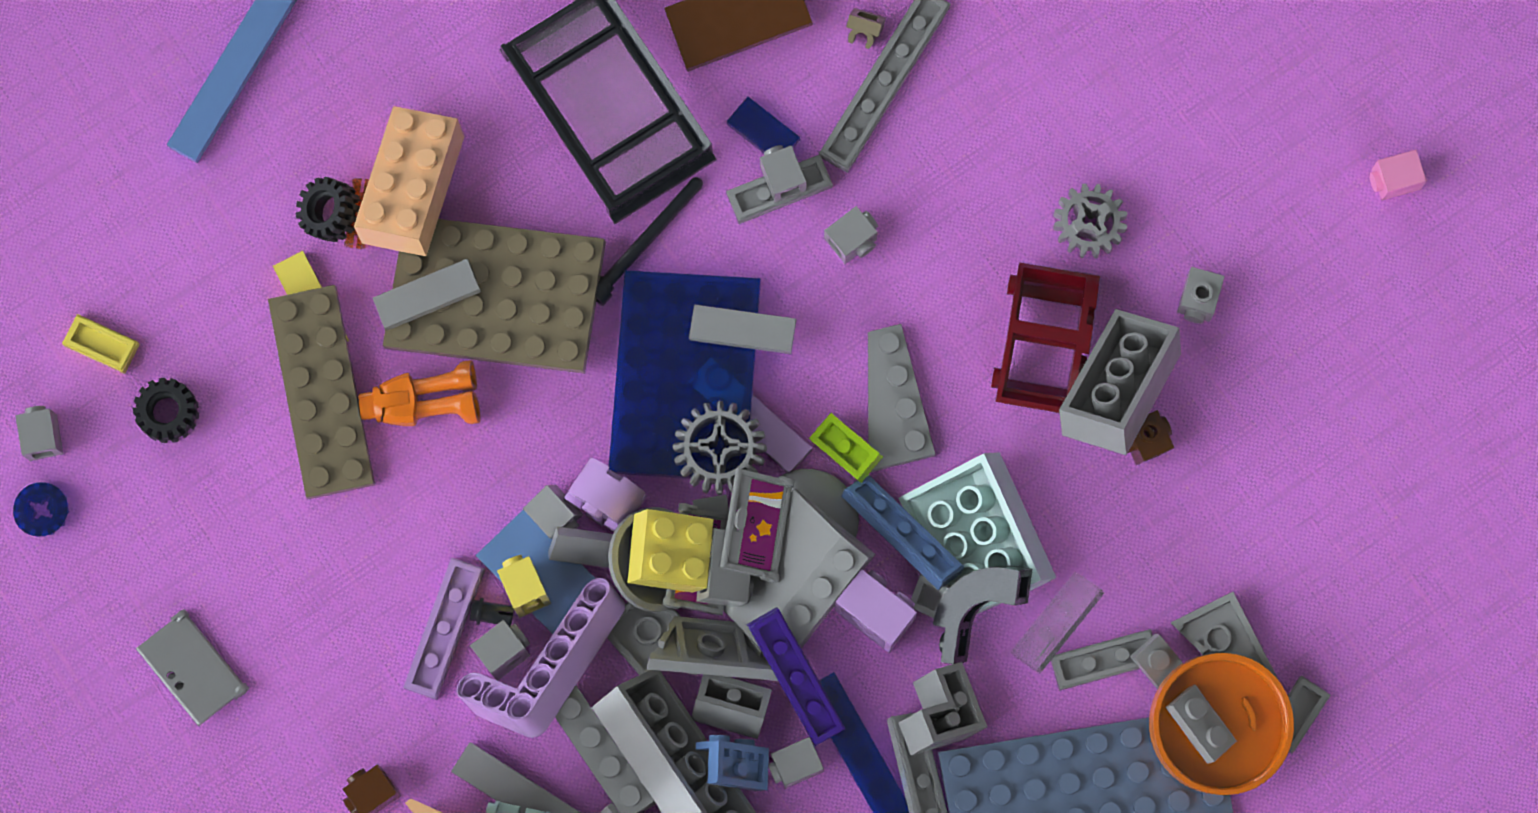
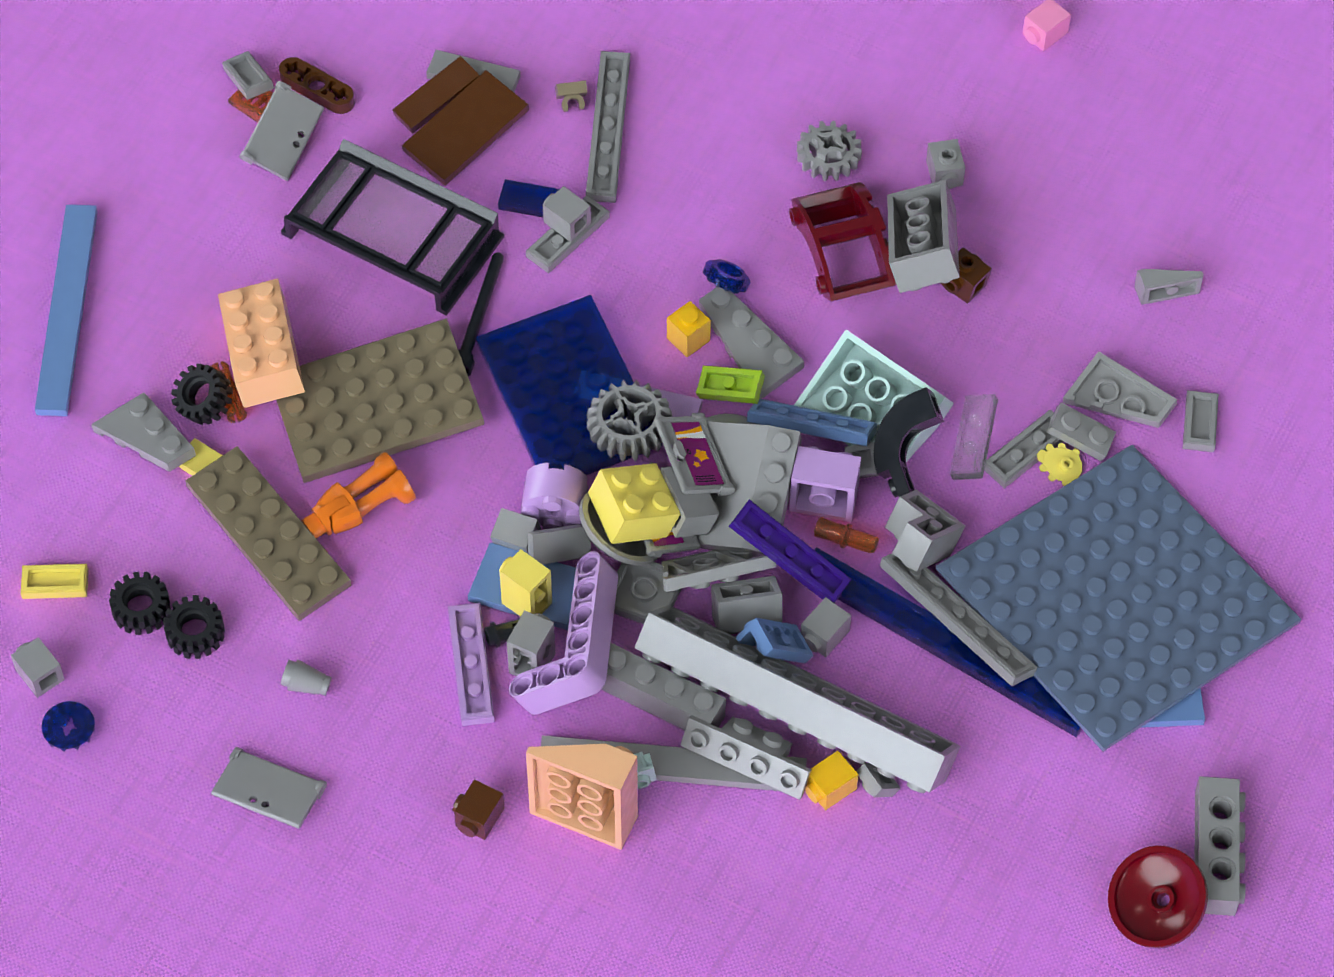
camera: 30 degrees left, 20 degrees down
(194, 443) = (194, 643): none -> black tyre
(260, 223) = (148, 431): none -> light grey wing
(279, 569) = (304, 678): none -> light grey cone
(426, 294) = (320, 418): light grey tile -> none
(742, 329) = (598, 333): light grey tile -> none
(837, 363) = (688, 329): none -> yellow brick
(852, 235) = (646, 237): light grey brick -> none
(871, 671) = (845, 535): none -> clear orange axle
(918, 320) = (726, 275): none -> clear blue gear
(1128, 694) = (1060, 463): none -> light yellow piece
(1201, 724) = (1133, 445): light grey plate -> none
(1251, 708) = (1148, 442): orange piece -> none
(1340, 543) = (1162, 285): none -> light grey slope

